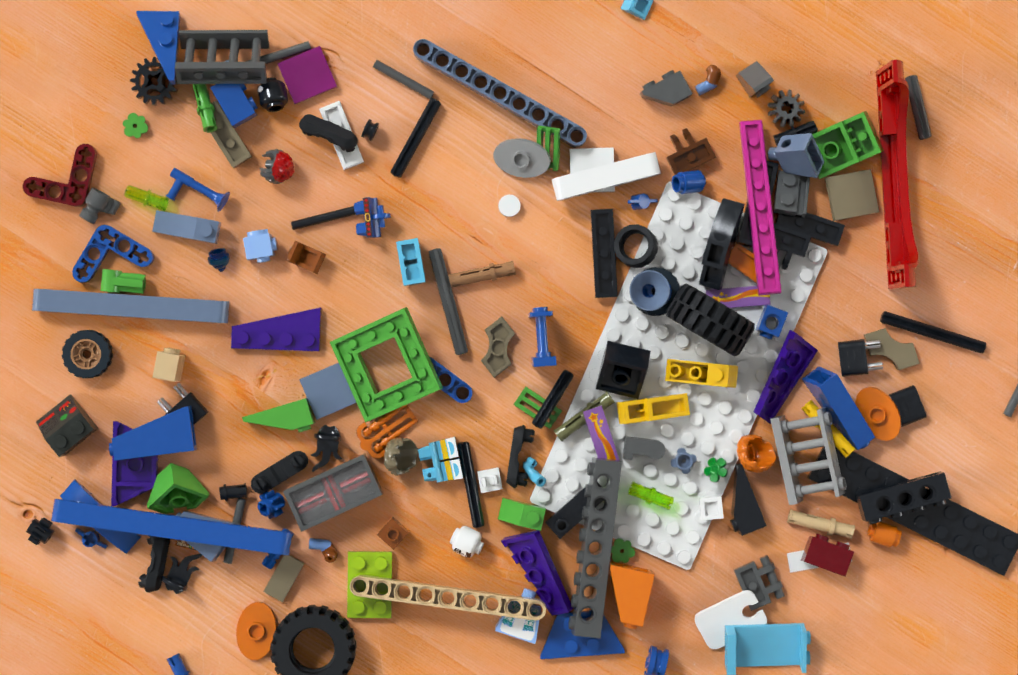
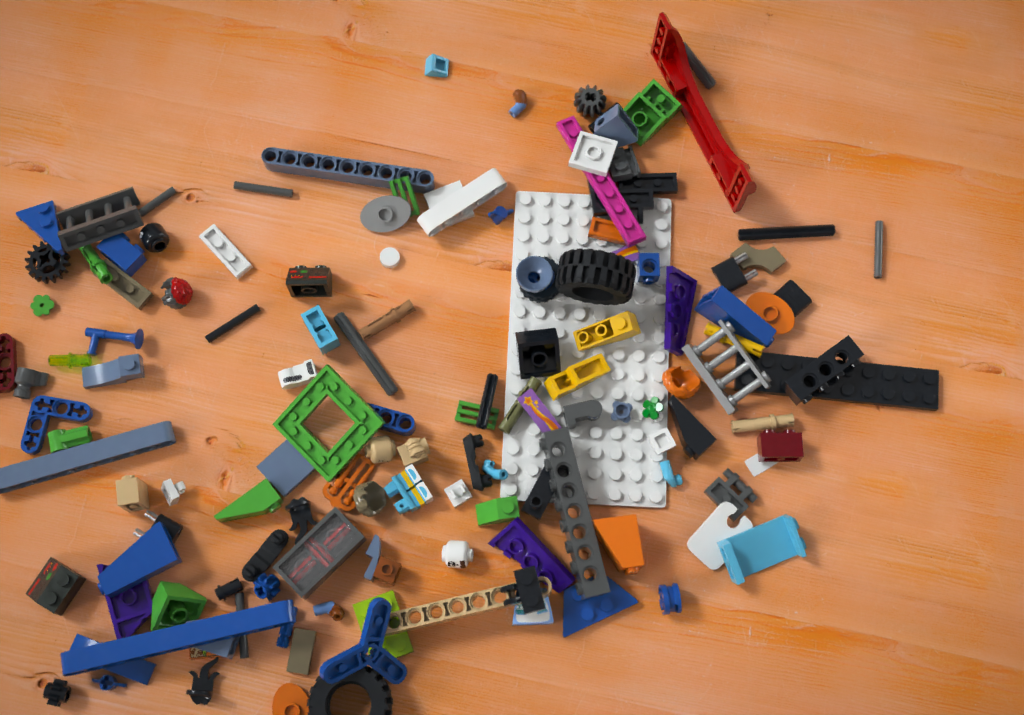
camera: 25 degrees left, 15 degrees down
(75, 358) = (51, 503): black wheel -> none
(153, 579) = (176, 670): black piece -> none
(208, 374) = (172, 491): none -> white tile
(218, 259) = (150, 390): clear blue plate -> none
(259, 245) = (183, 364): light blue brick -> none
(287, 332) = (229, 432): dark purple wing -> none
(305, 257) = (227, 359): dark orange bracket -> none
(307, 75) = (179, 213): magenta piece -> none
(332, 132) = (199, 248): black piece -> none
(354, 600) = (378, 659): none -> blue piece
(370, 130) = (248, 237): black bush -> none
(372, 300) = (297, 375): none -> white leg
(373, 215) = (276, 305): blue hips -> none
(386, 510) = (373, 552): none -> sand blue slope
(415, 137) = (289, 231): black axle -> none
(418, 203) = (309, 281): none -> pearl dark grey slope
(428, 409) = (380, 449): none -> tan head
(460, 424) = (414, 451): none -> tan brick
(470, 484) = (443, 503): black axle -> none
(499, 336) = (425, 386): dark tan tile -> none
(521, 610) = (529, 591): none -> black hinge
(543, 357) = (464, 357): blue fence -> none
(603, 253) = (484, 266): black plate -> none
(620, 240) = (499, 239): black tyre -> none
(628, 552) = (601, 506): bright green plant -> none
(650, 495) = (605, 451): clear neon green pin -> none
(667, 91) = (487, 121): dark grey slope -> none
(688, 182) = (533, 183): blue brick -> none
(691, 156) = (526, 165): reddish brown hinge -> none
(704, 541) = (673, 480): none -> medium azure arm
(720, 243) = (579, 215): black slope -> none
(755, 80) = (555, 87): dark grey slope -> none
(763, 176) = (593, 153): none -> white tile
(852, 195) = (672, 148): dark tan slope -> none
(884, 534) = (820, 411): orange brick -> none

